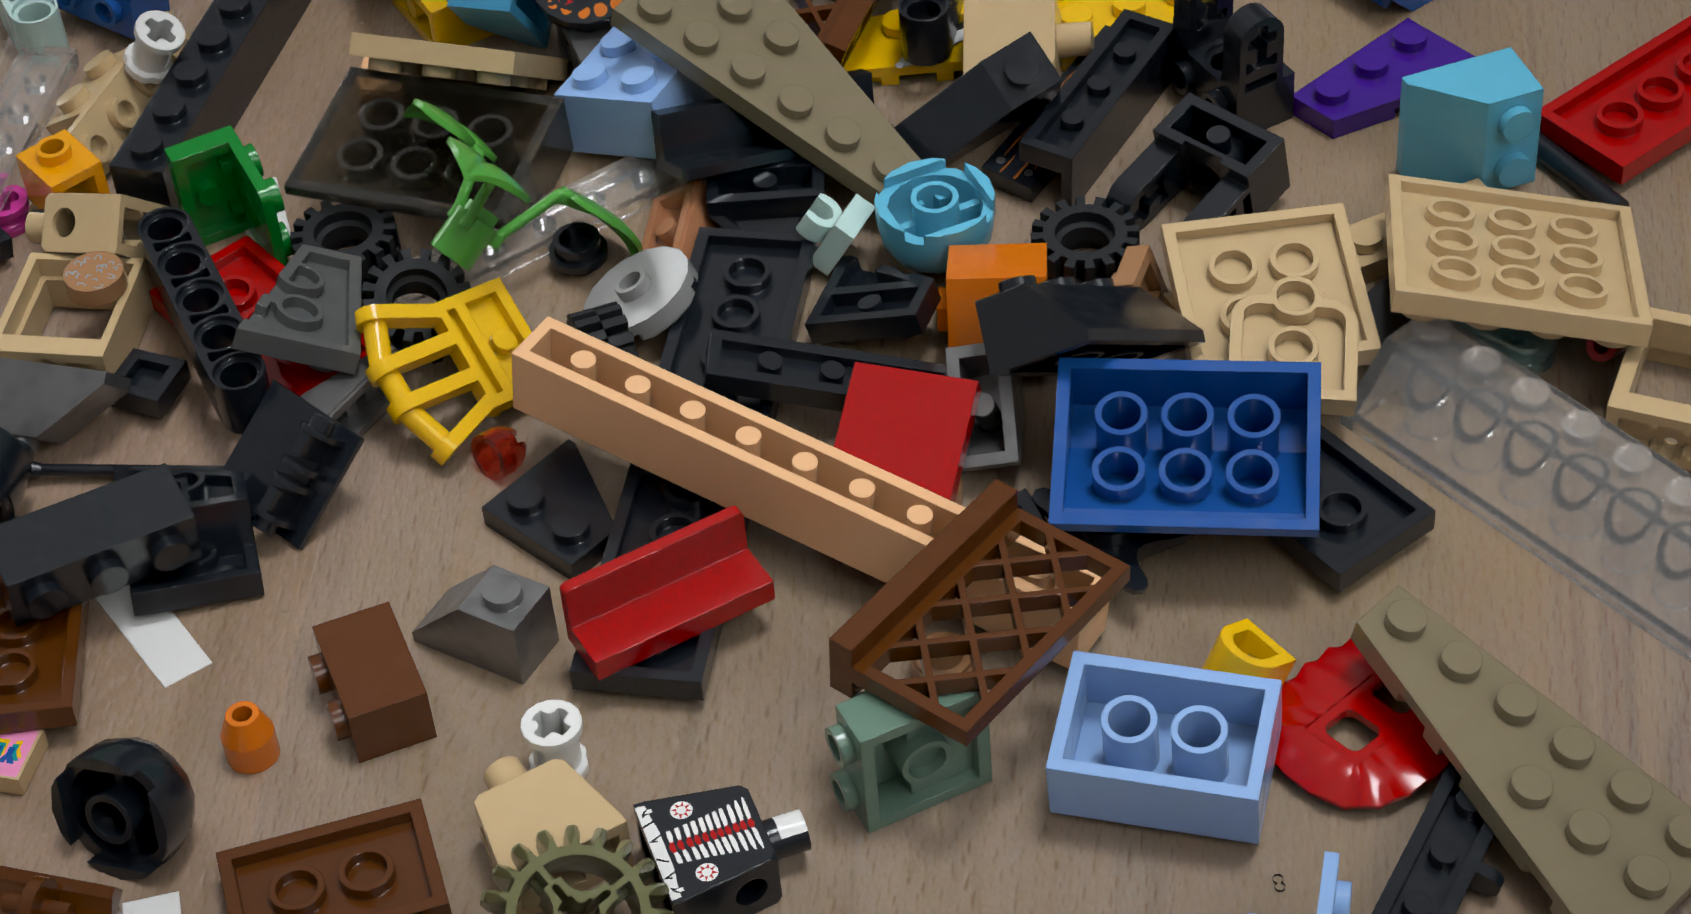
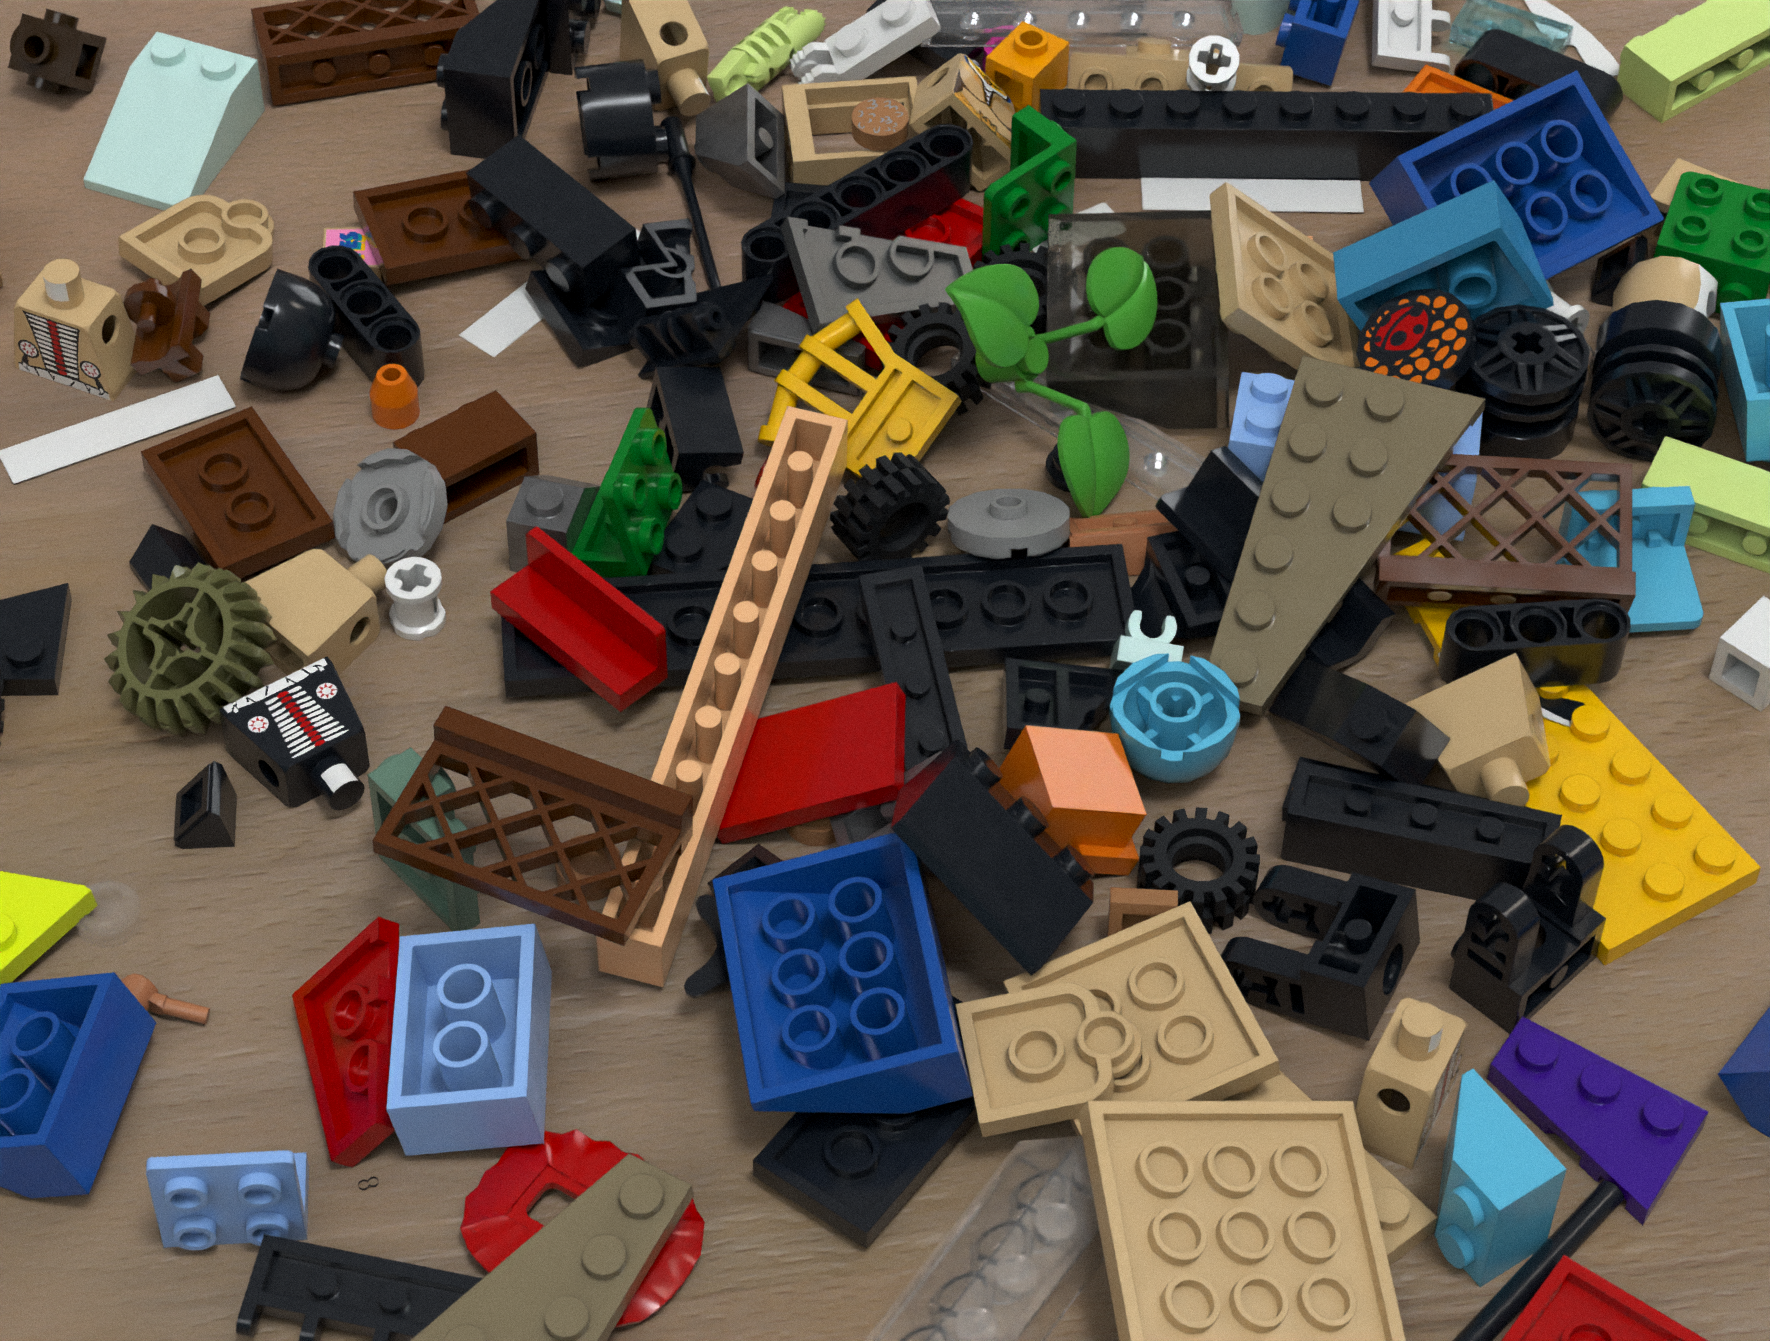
camera: 70 degrees right, 5 degrees up
(176, 716) = (367, 313): none -> black beam
(283, 85) = (1272, 194): none -> white sticker
(412, 503) = (697, 422): none -> black hinge
(426, 706) = (390, 507): none -> light grey plate
(520, 530) = (631, 504): none -> green bracket
(1134, 849) = (347, 1040): none -> red wing
(1240, 644) = (608, 1096): yellow plate -> none
(1349, 148) = (1420, 1059): none -> tan torso

